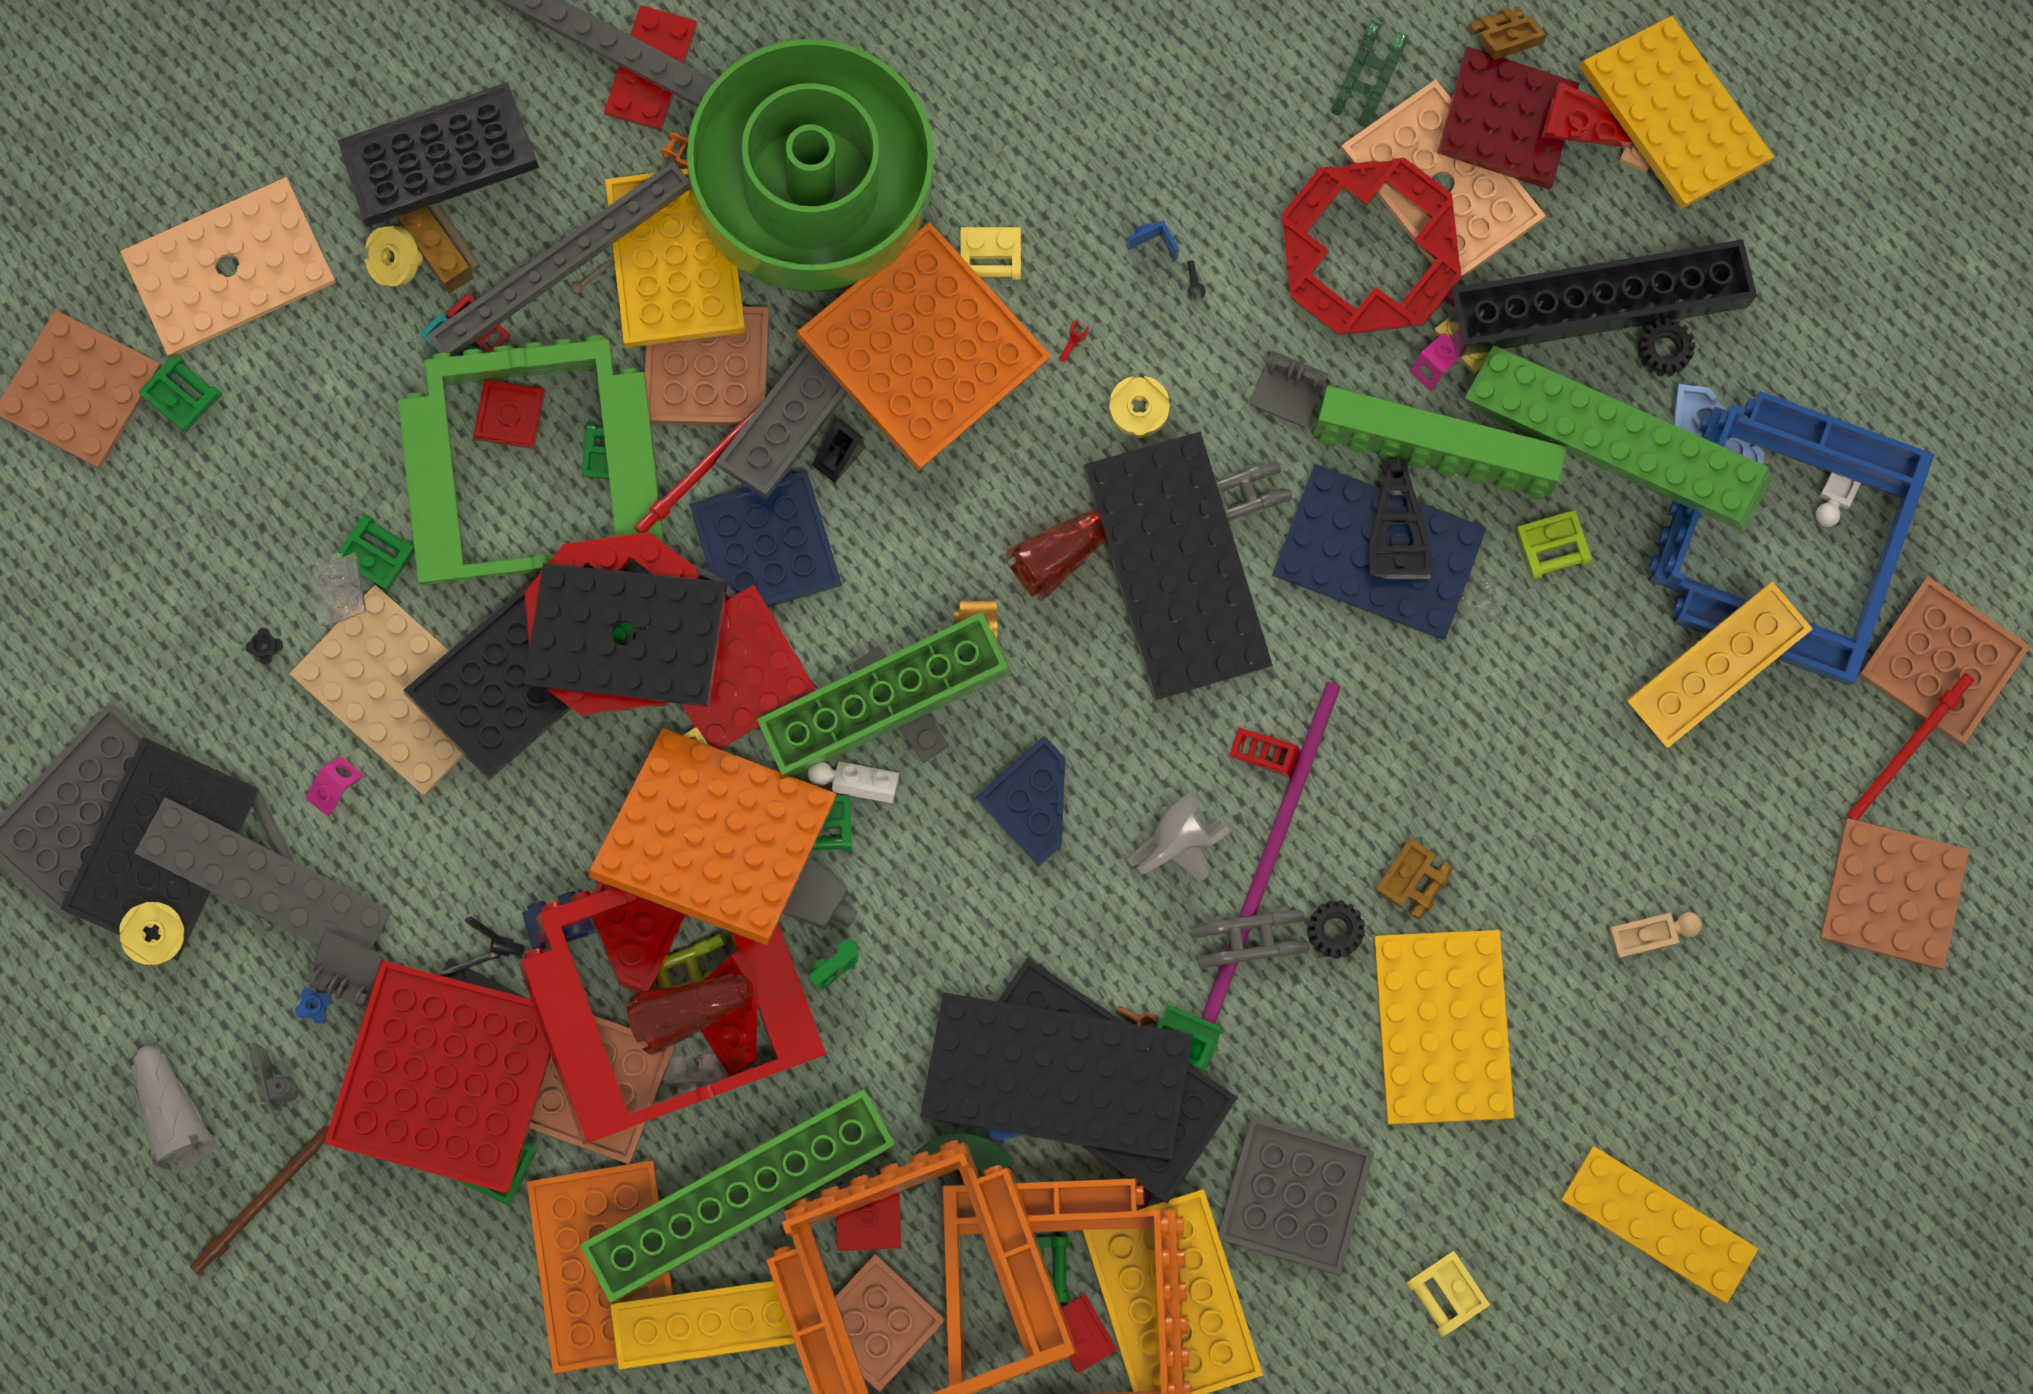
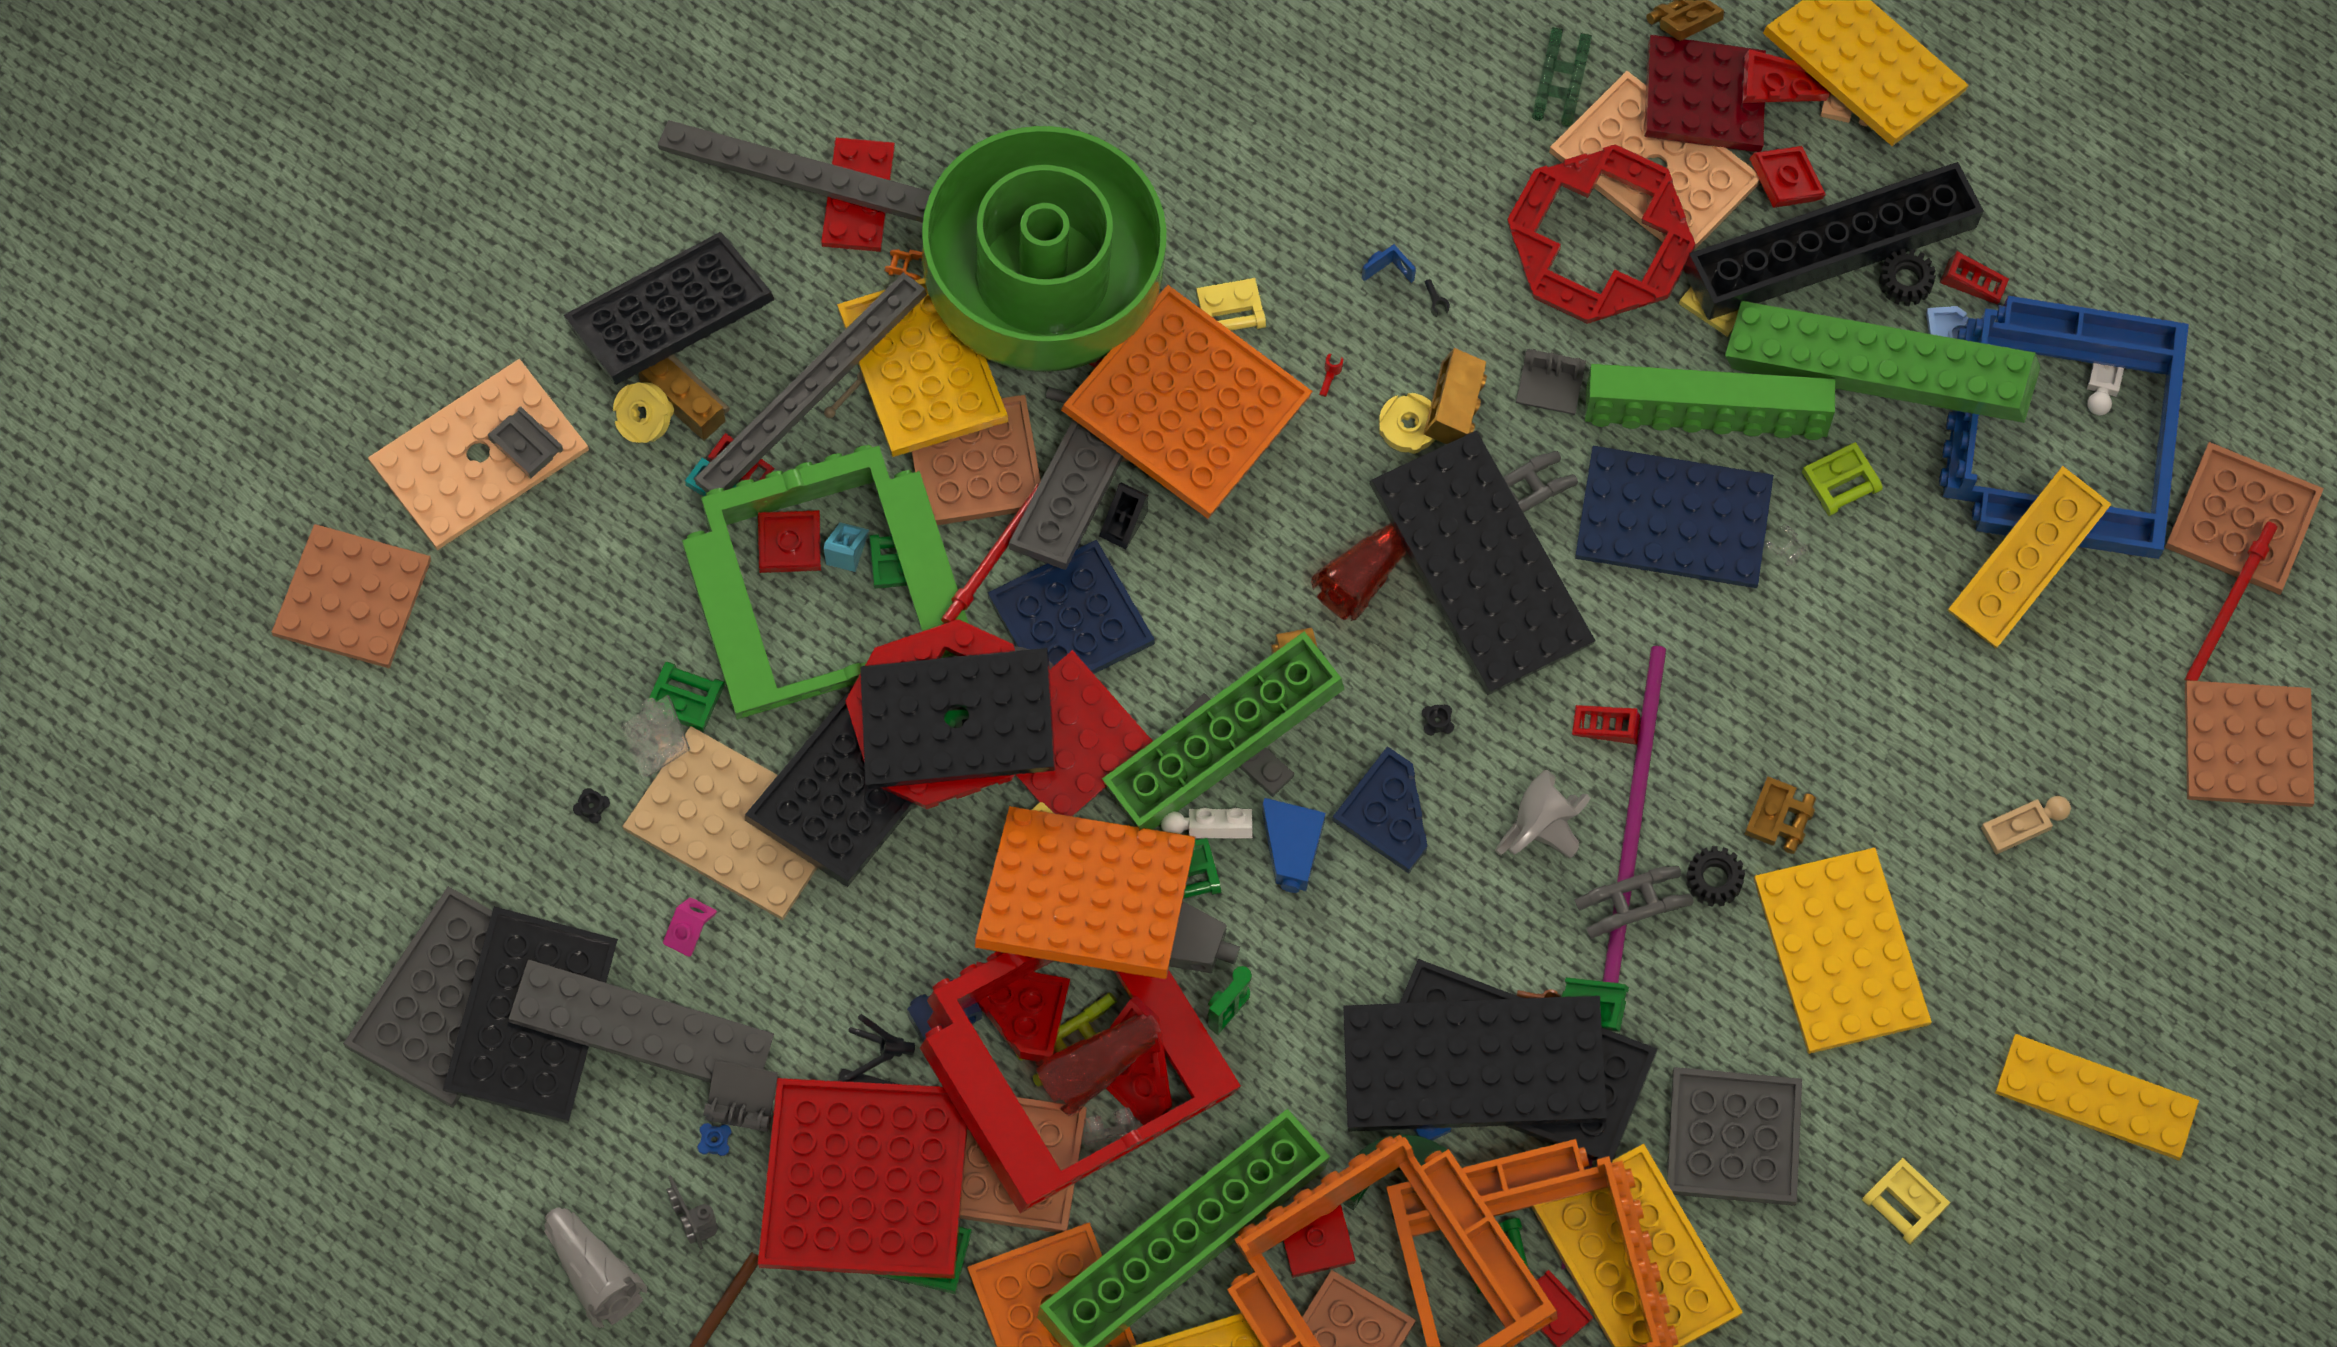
camera: 10 degrees left, 10 degrees down
(133, 935) = (557, 1088): light yellow plate -> none
(172, 400) = (452, 589): green plate -> none
(270, 827) = (631, 974): dark grey bar -> none
(271, 266) = (525, 442): none -> dark grey plate
(562, 428) = (845, 546): none -> medium azure slope
(931, 816) = (1292, 842): none -> blue slope
(1094, 709) = (1437, 711): none -> black plate
(1189, 391) = (1456, 397): none -> pearl gold brick
(1399, 561) = (1697, 517): black plate -> none
(1437, 358) = (1690, 324): dark pink bracket -> none
(1570, 220) = (1787, 176): none -> red plate
(1717, 361) = (1961, 283): none -> red slope

